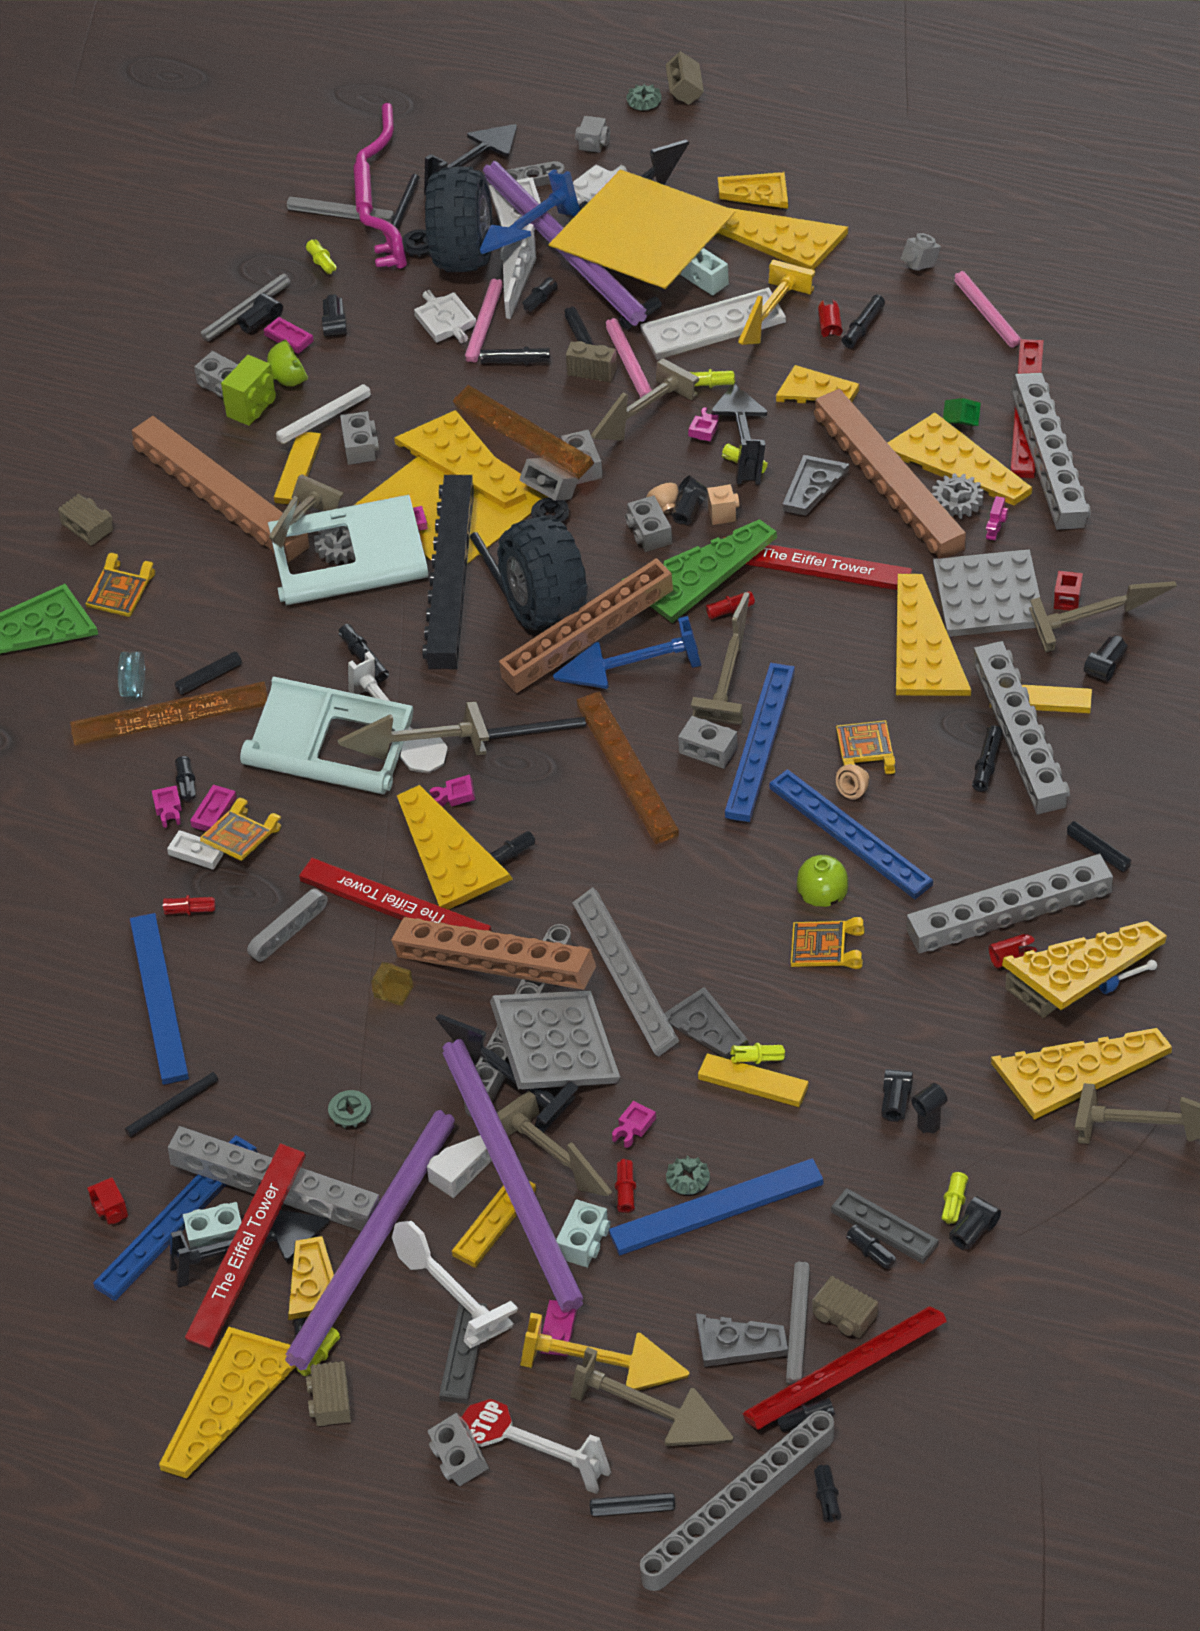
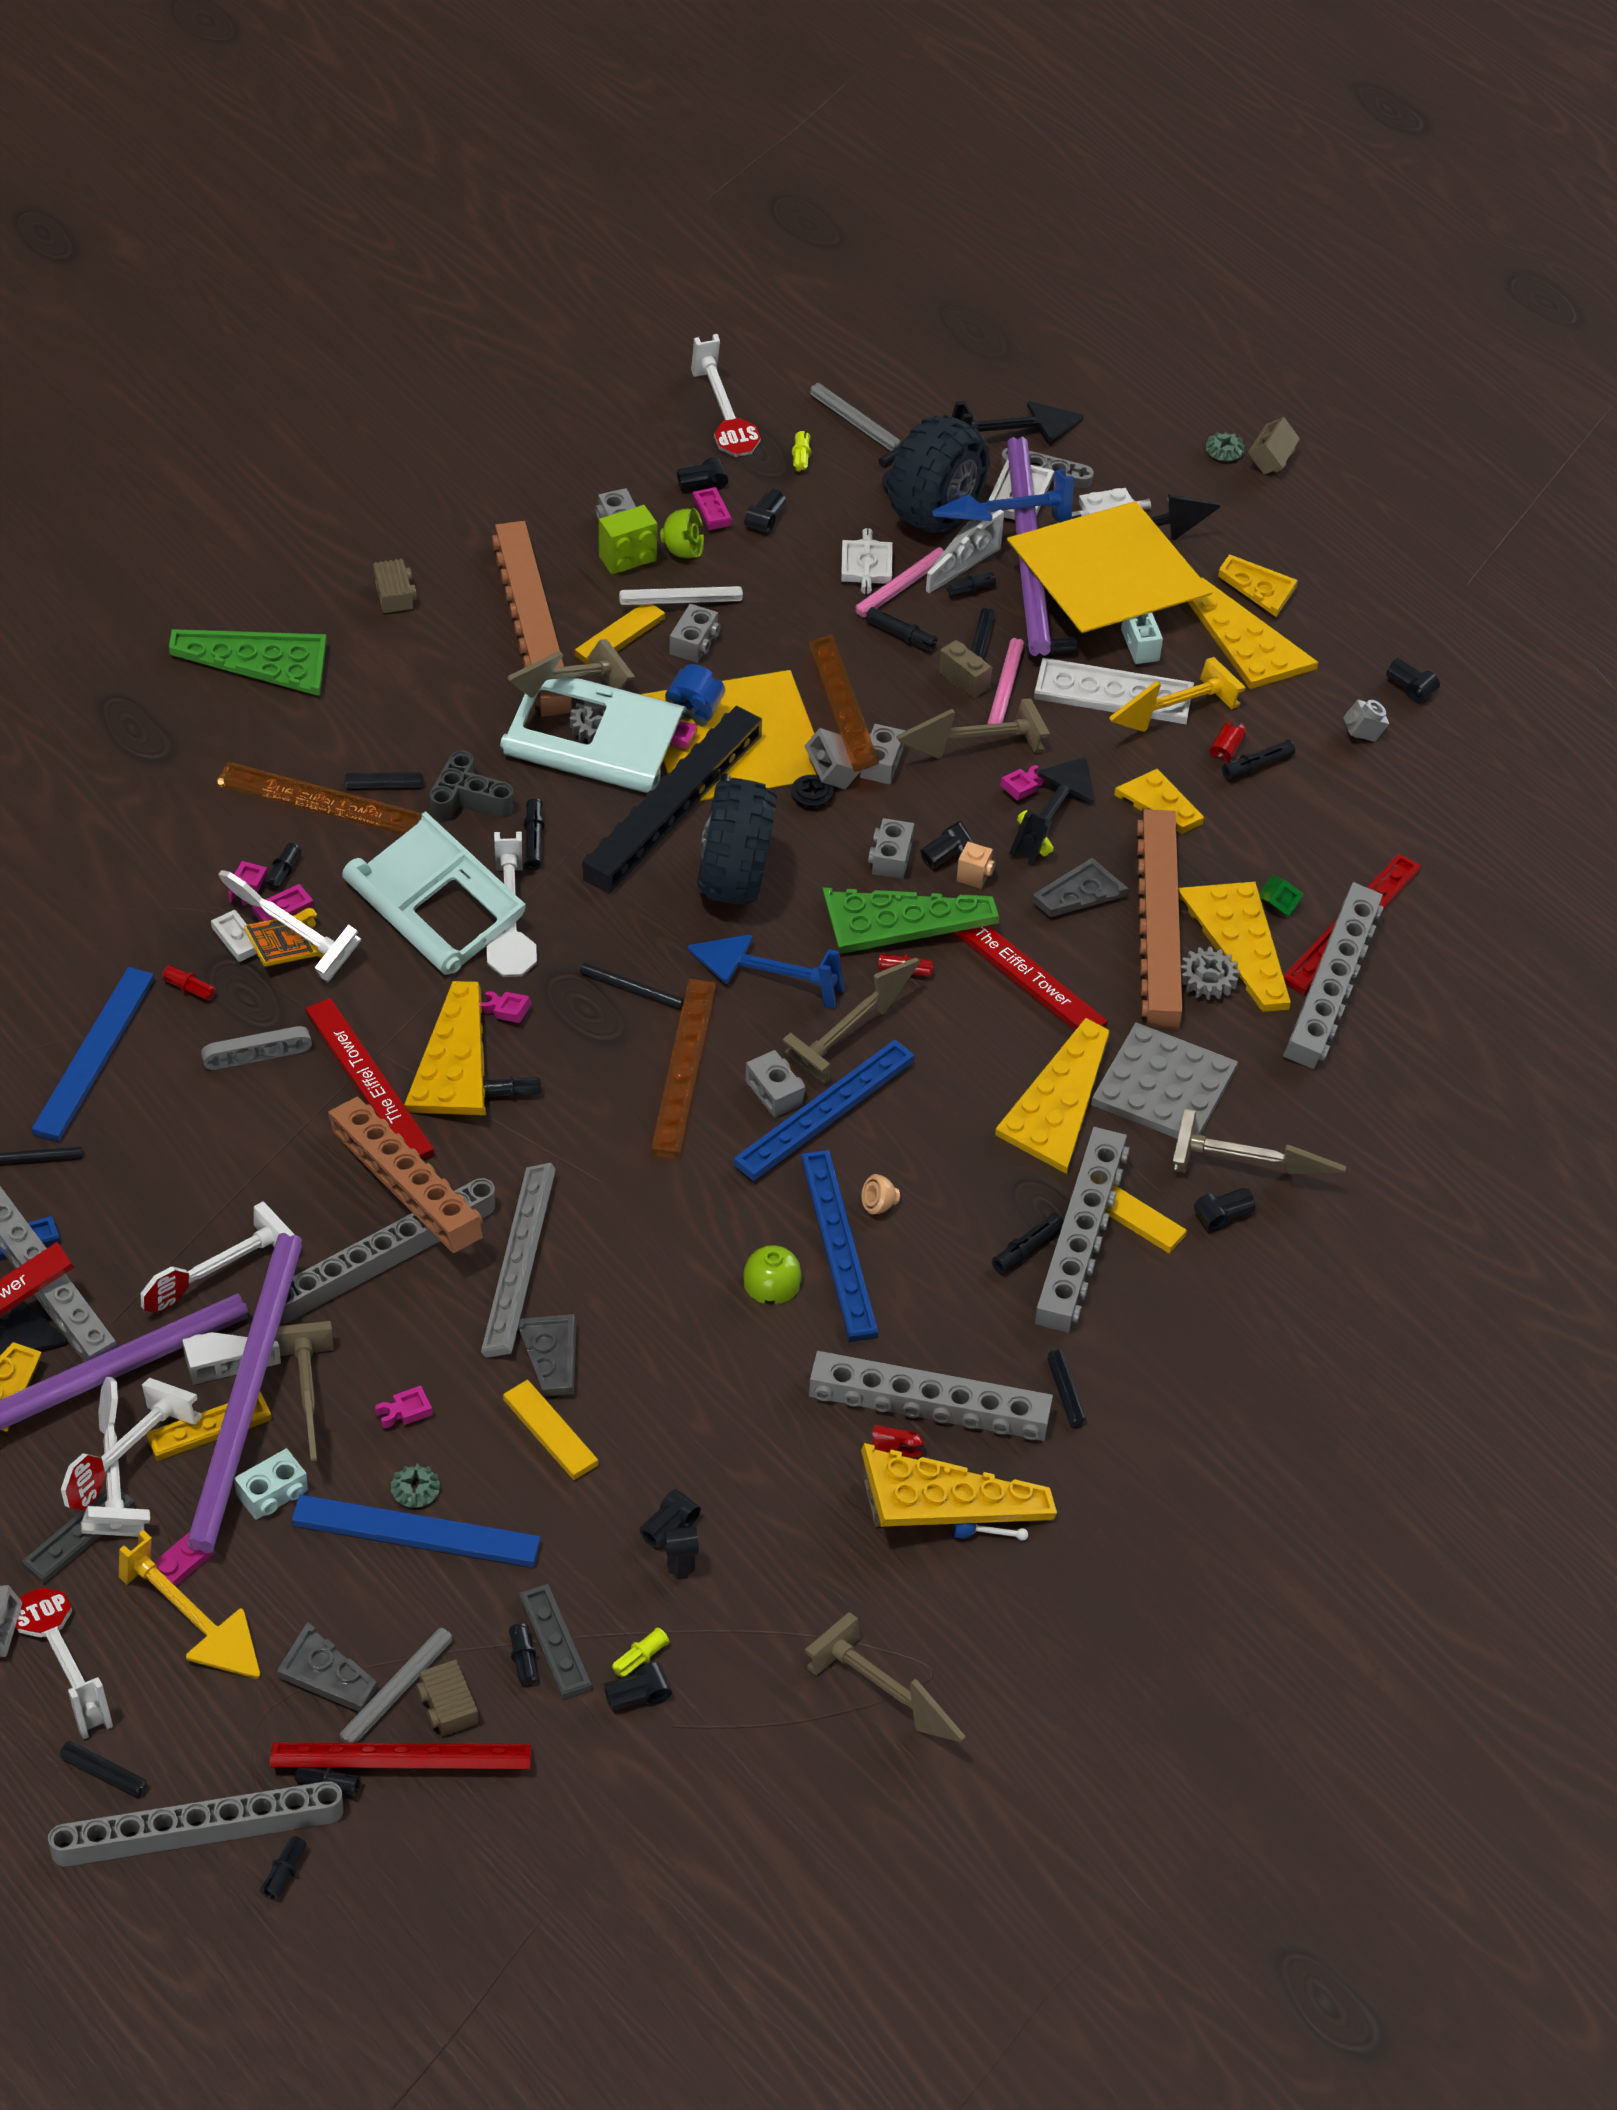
camera: 25 degrees right, 0 degrees up
(118, 590) = (373, 664): flag -> none
(131, 674) = (311, 745): clear light blue head -> none
(189, 810) = (334, 951): none -> white piece
(231, 317) = (670, 468): light grey axle -> none
(255, 269) = (734, 434): none -> white piece
(286, 645) = (463, 788): none -> dark grey beam
(357, 1101) = (162, 1241): sand green gear -> none
(363, 197) = (888, 406): dark pink piece -> none
(377, 736) = (467, 918): dark tan piece -> none
(392, 983) = (301, 1153): clear yellow panel -> none
(404, 477) = (697, 692): none -> blue brick
(419, 1053) = (169, 1285): none -> white piece
(452, 1219) = (87, 1472): none -> white piece
(457, 450) = (775, 693): yellow wing -> none
(474, 1041) = (345, 1348): black piece -> none
(554, 1039) = (392, 1286): light grey plate -> none
(586, 626) = (747, 912): nougat brick -> none
(592, 134) = (1145, 457): light grey brick -> none
(625, 1186) = (348, 1462): red axle -> none
(666, 496) = (927, 829): light nougat brick -> none
(692, 1422) = (220, 1725): dark tan piece -> none
(715, 378) = (1067, 741): neon yellow axle -> none
(757, 1053) = (573, 1406): neon yellow axle -> none
(825, 943) = (724, 1334): flag -> none
(866, 743) = (924, 1165): flag -> none
(934, 207) = (1417, 684): none -> black piece
(987, 309) = (1391, 808): bright pink axle -> none
(997, 516) = (1231, 1012): dark pink plate -> none
(1058, 1072) = (827, 1587): yellow wing -> none
(1068, 590) = (1241, 1121): red brick -> none

